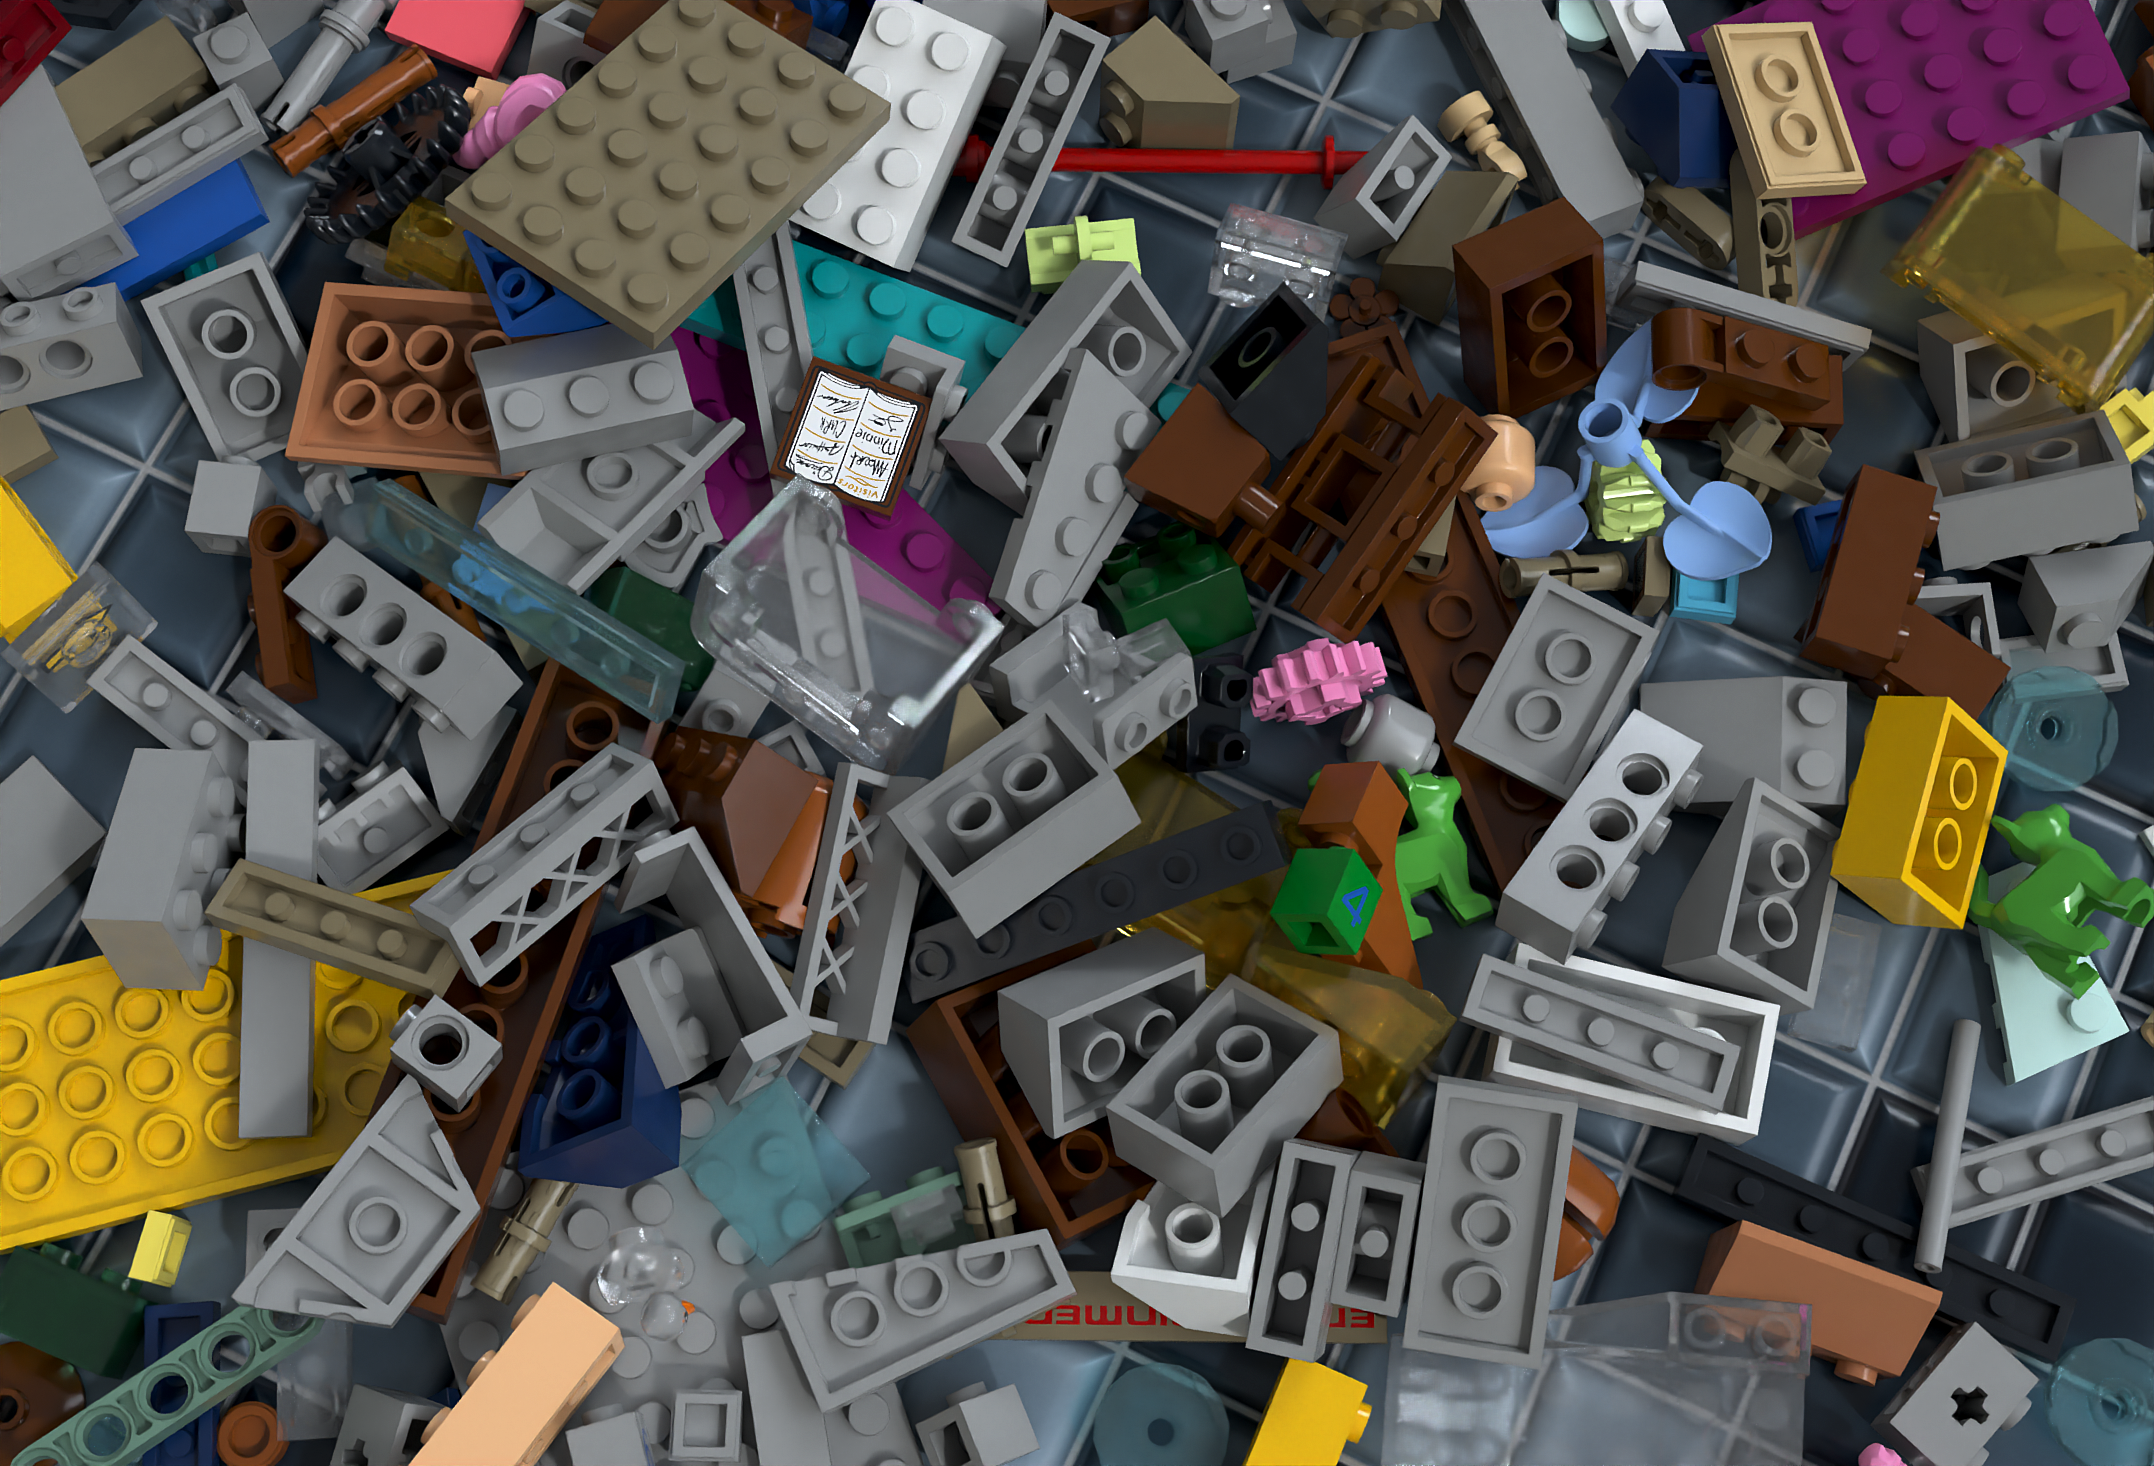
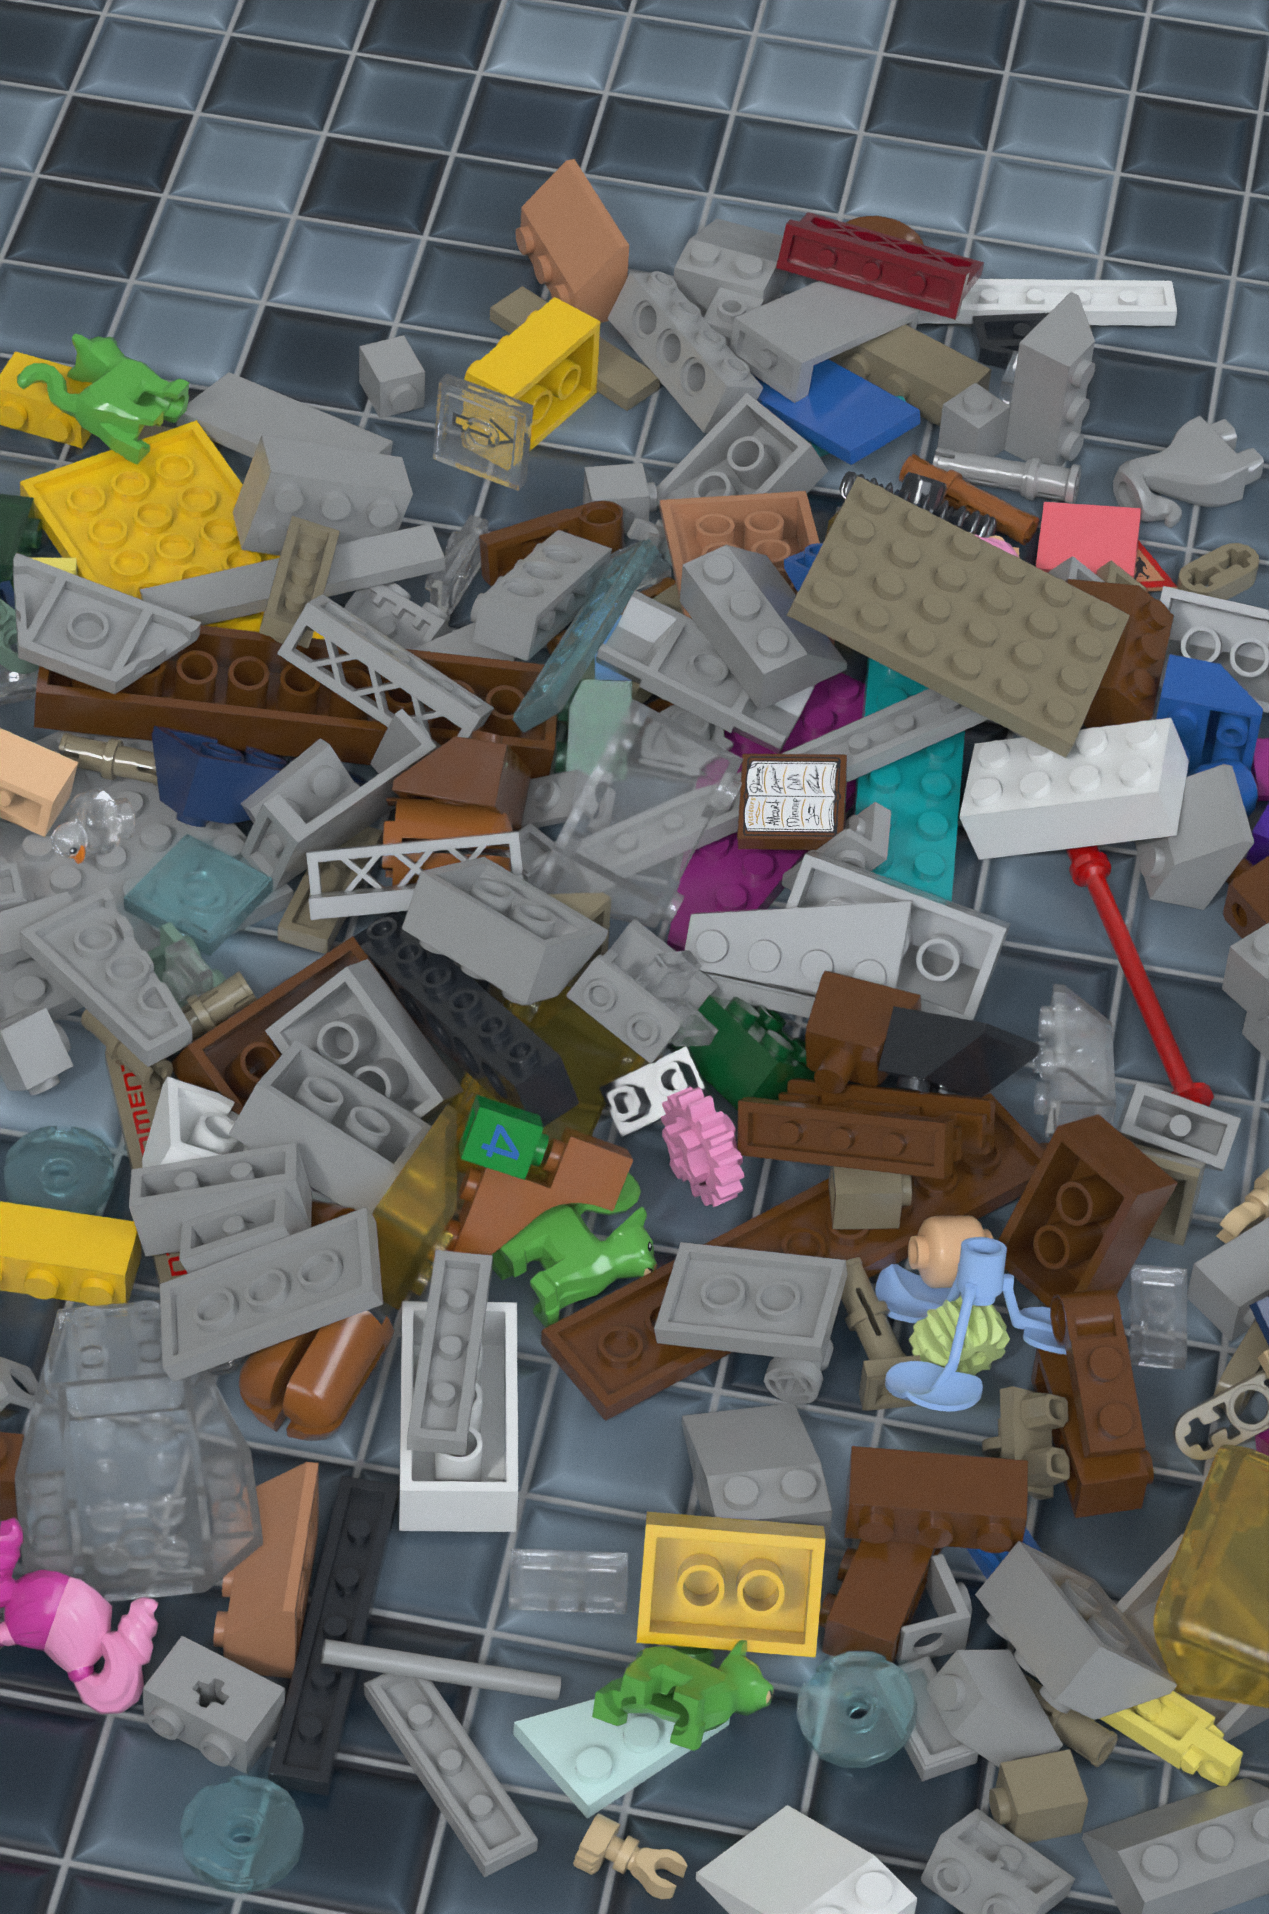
camera: 75 degrees right, 25 degrees down
(175, 709) = (449, 503): light grey plate -> none
(179, 154) = (876, 396): light grey tile -> none
(452, 1081) = (221, 661): light grey brick -> none
(1031, 139) = (1102, 871): light grey brick -> none
(1058, 249) = (1032, 949): yellowish green hips -> none
(1164, 95) = (1189, 956): dark tan slope -> none
(1392, 734) = (677, 1214): light grey head -> none
(1639, 758) = (628, 1342): light grey brick -> none
(1656, 289) = (1161, 1406): light grey tile -> none
(1704, 600) = (900, 1429): medium azure tile -> none
(1759, 903) = (604, 1474): light grey slope -> none

